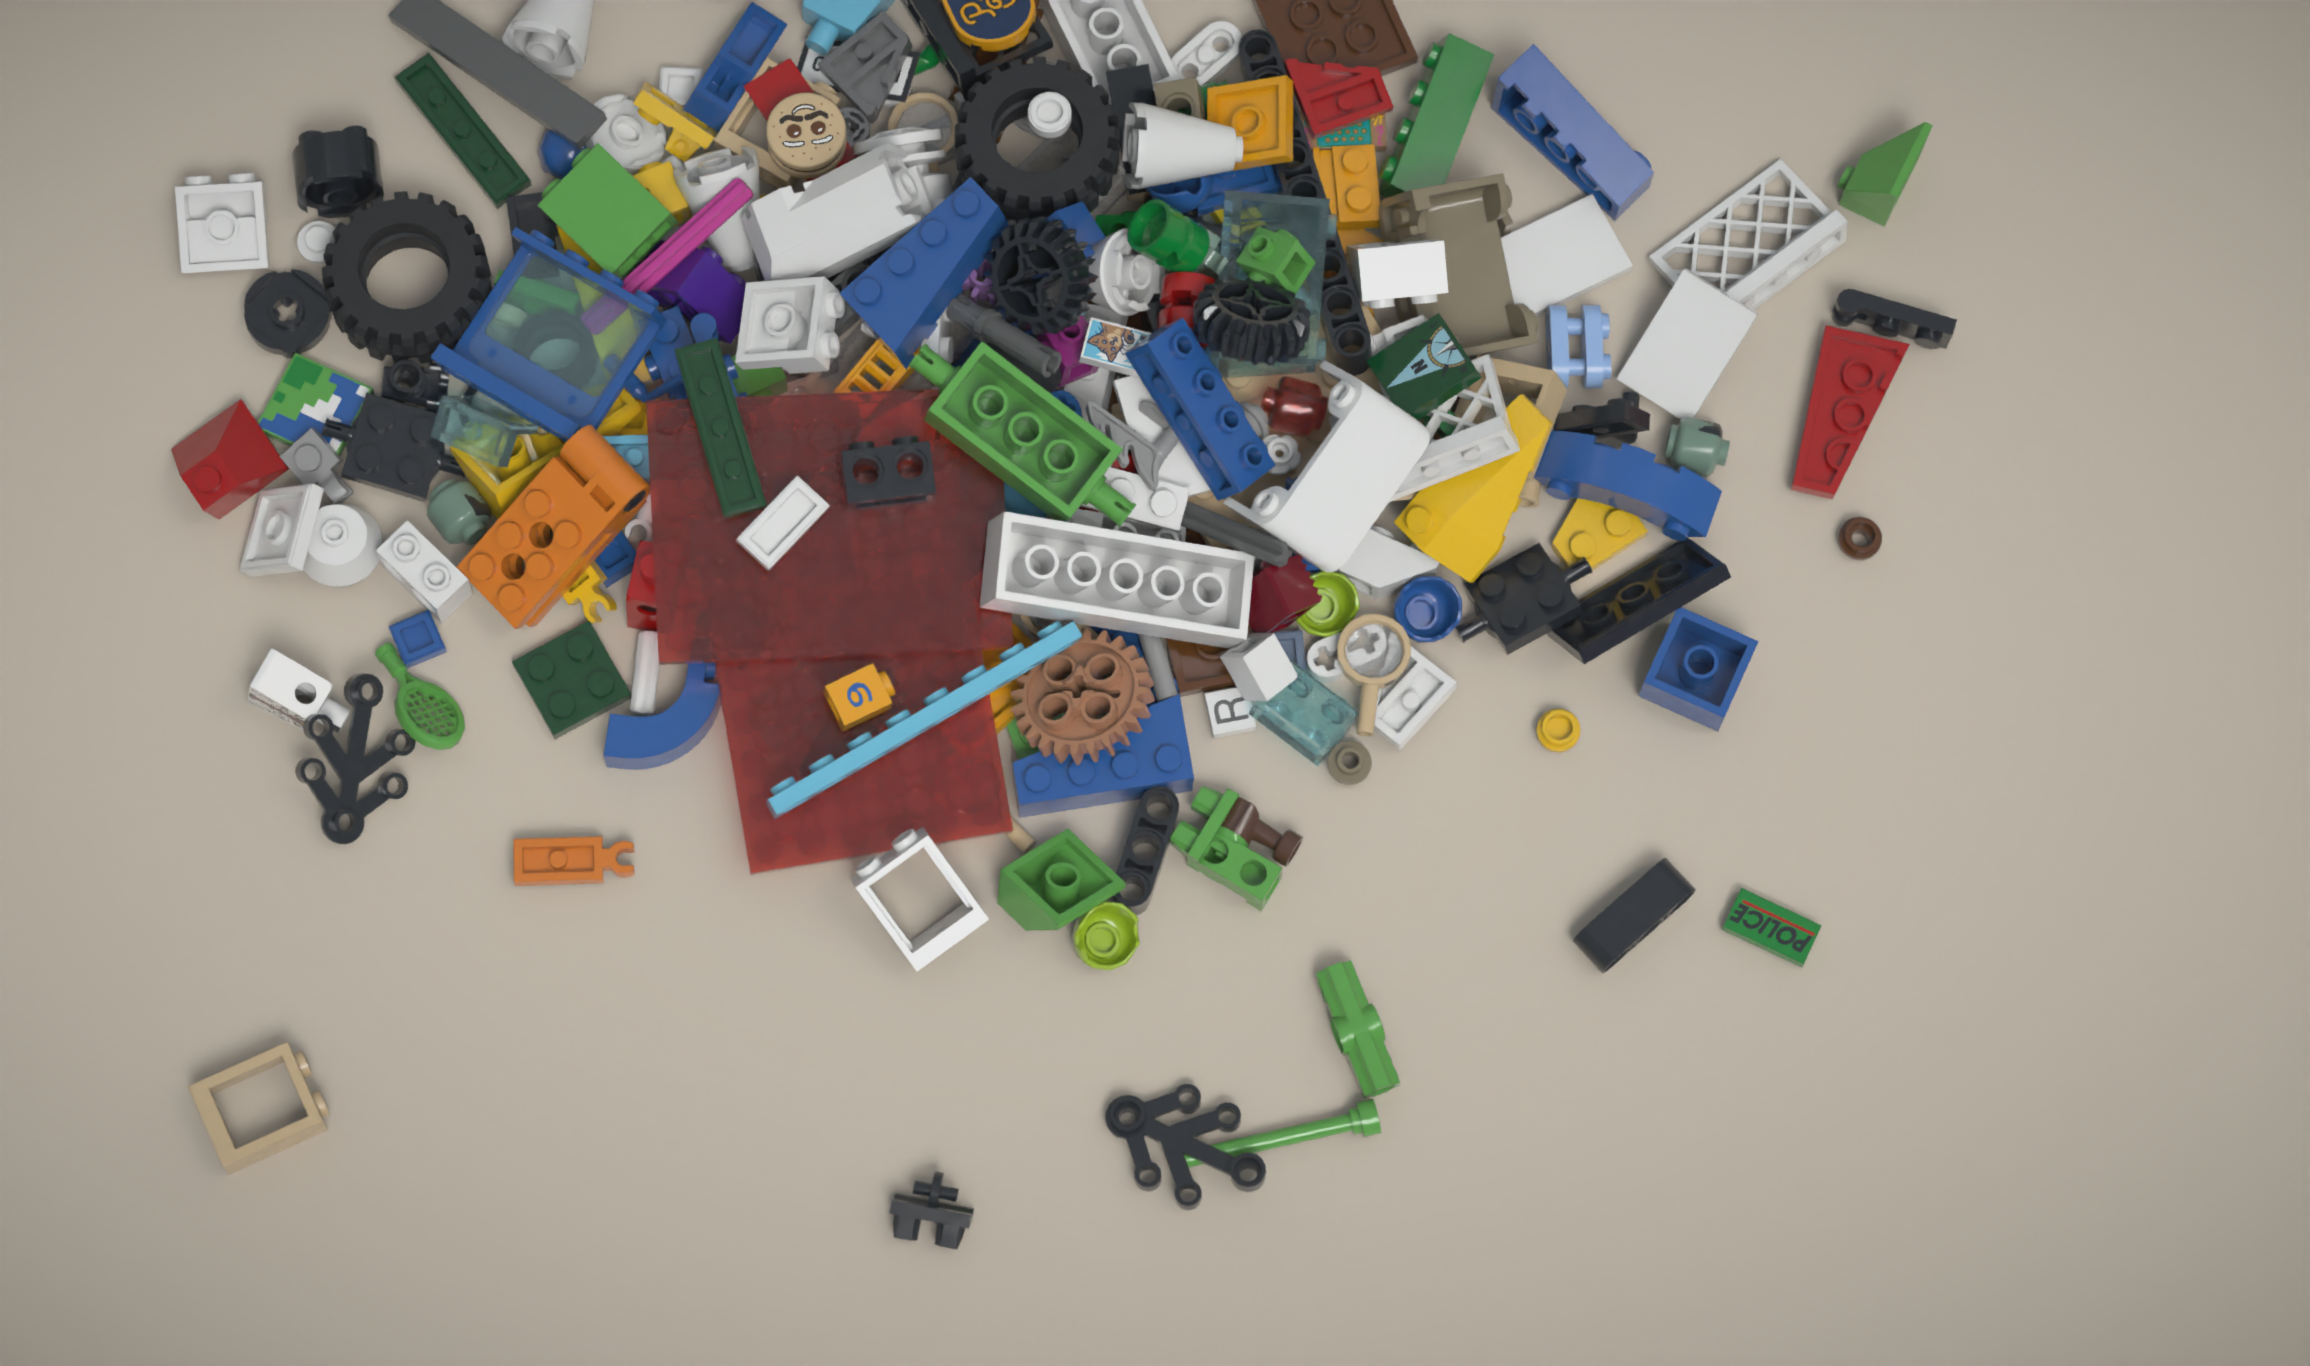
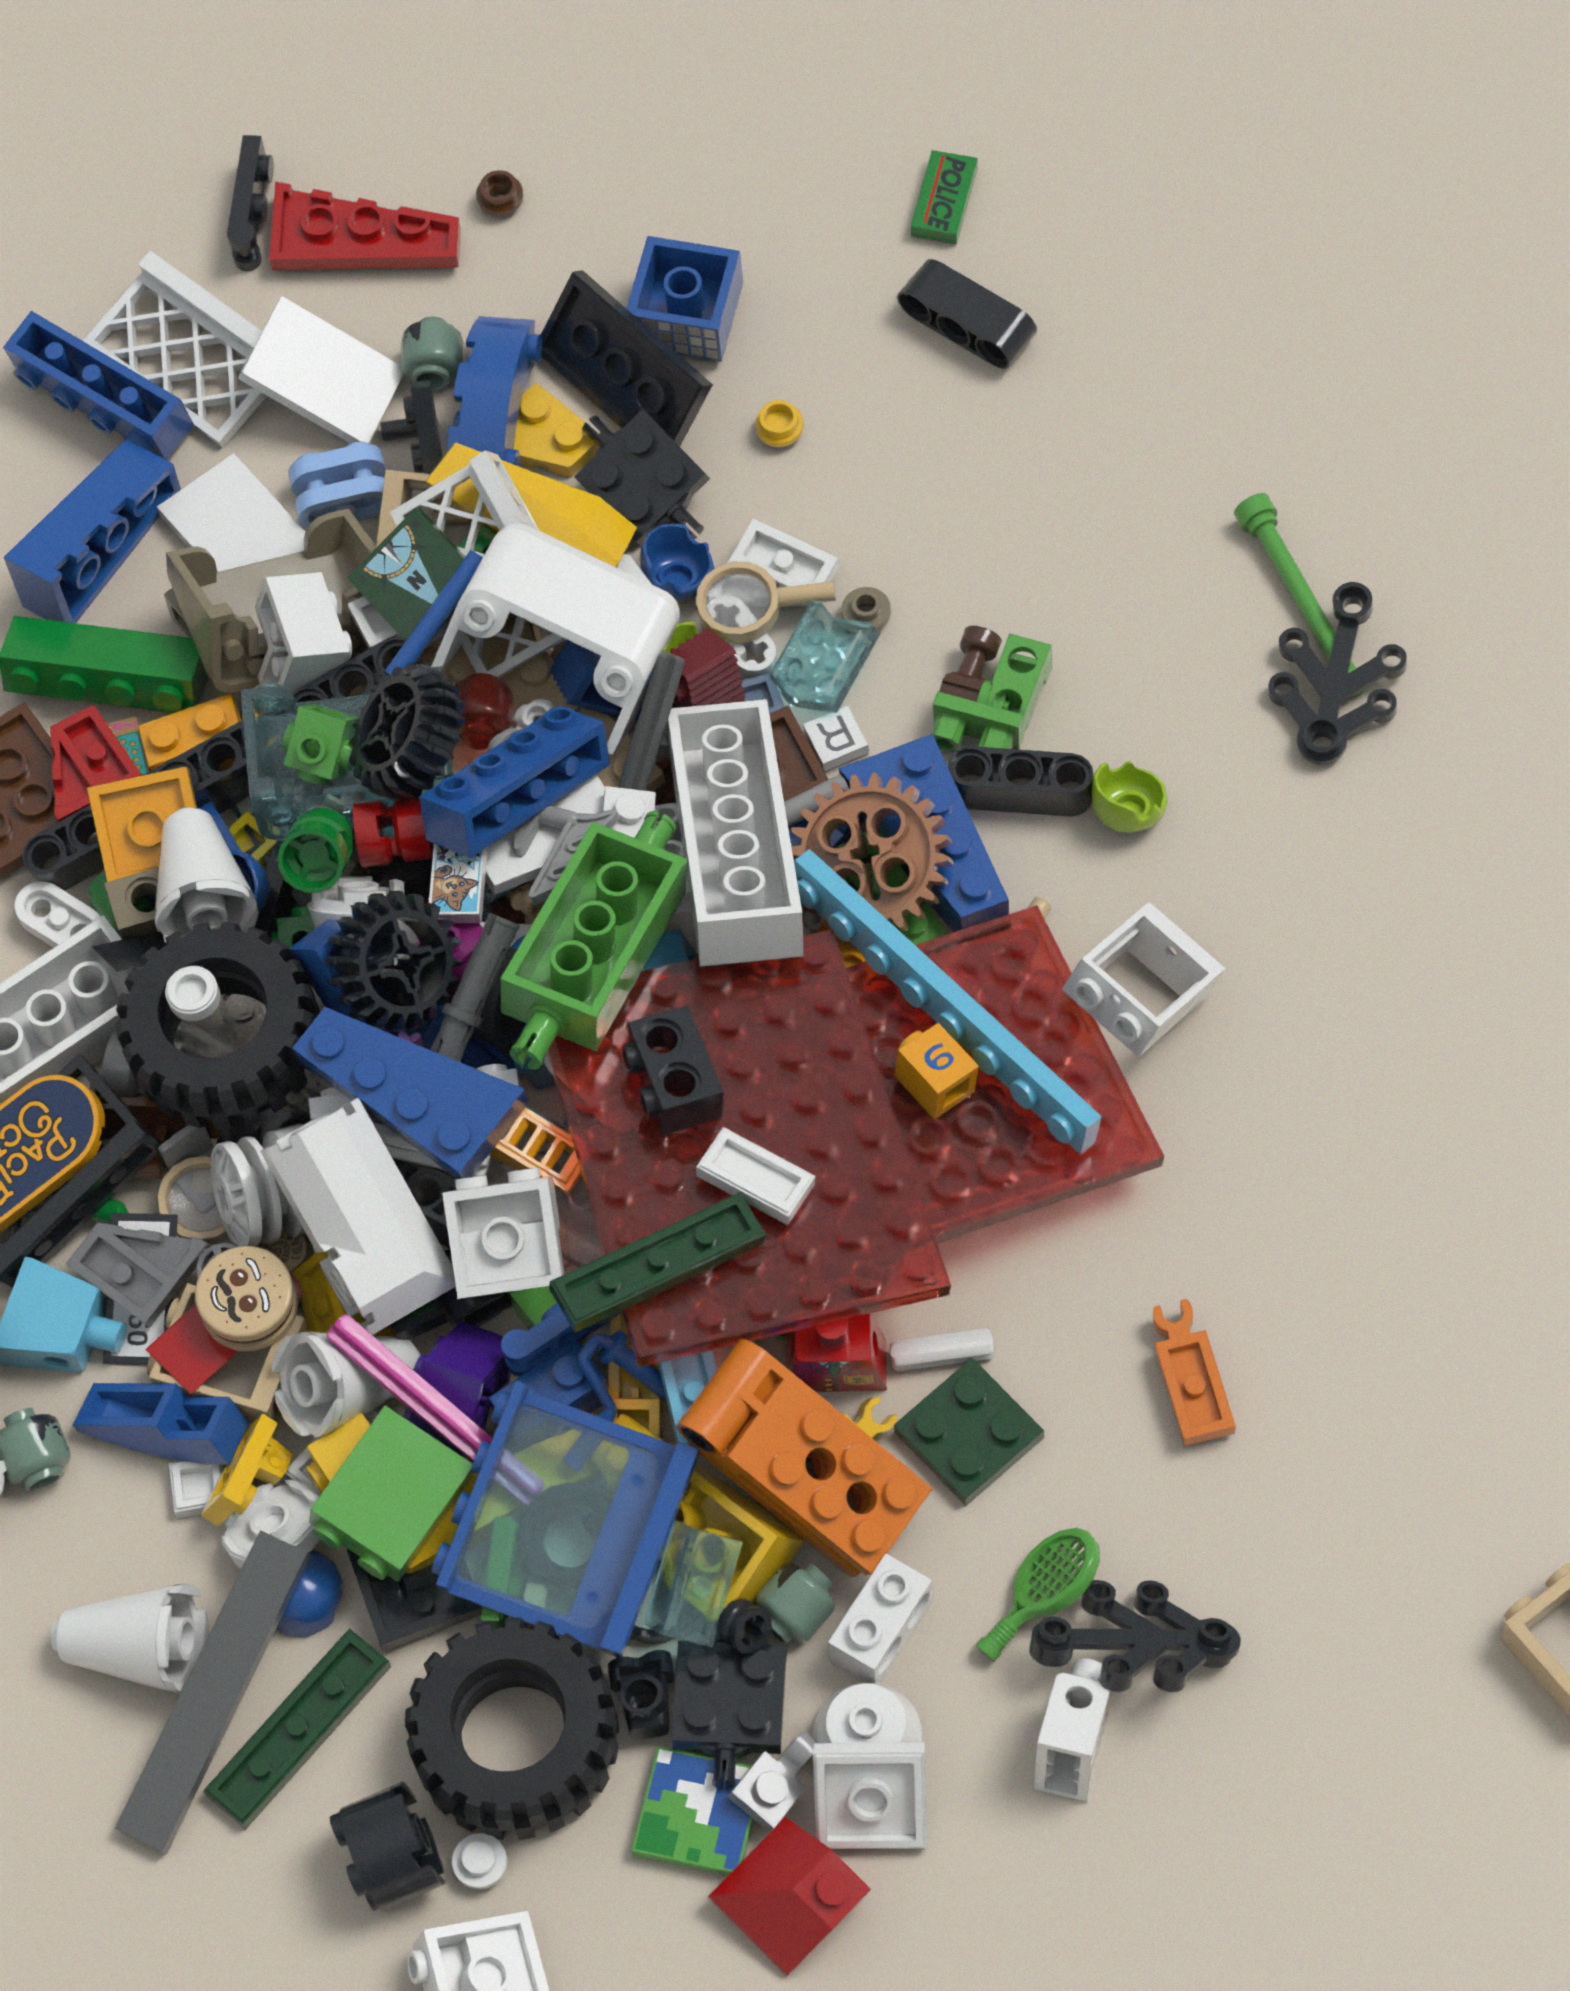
camera: 90 degrees left, 10 degrees down
(287, 289) = (570, 1845): black plate -> none
(417, 639) = (961, 1618): blue tile -> none
(440, 462) = (731, 1625): none -> black bush
(667, 736) = (1010, 1301): blue arch -> none
(951, 1218) = (1482, 904): black hips -> none
(1055, 883) = (1091, 845): bright green slope -> none
(1259, 667) = (793, 699): white panel -> none
(1357, 1029) = (1162, 540): bright green piece -> none
(1373, 372) = (436, 613): none -> blue bar
(1717, 159) = (97, 386): none -> blue brick
(1882, 175) = (89, 226): bright green slope -> none

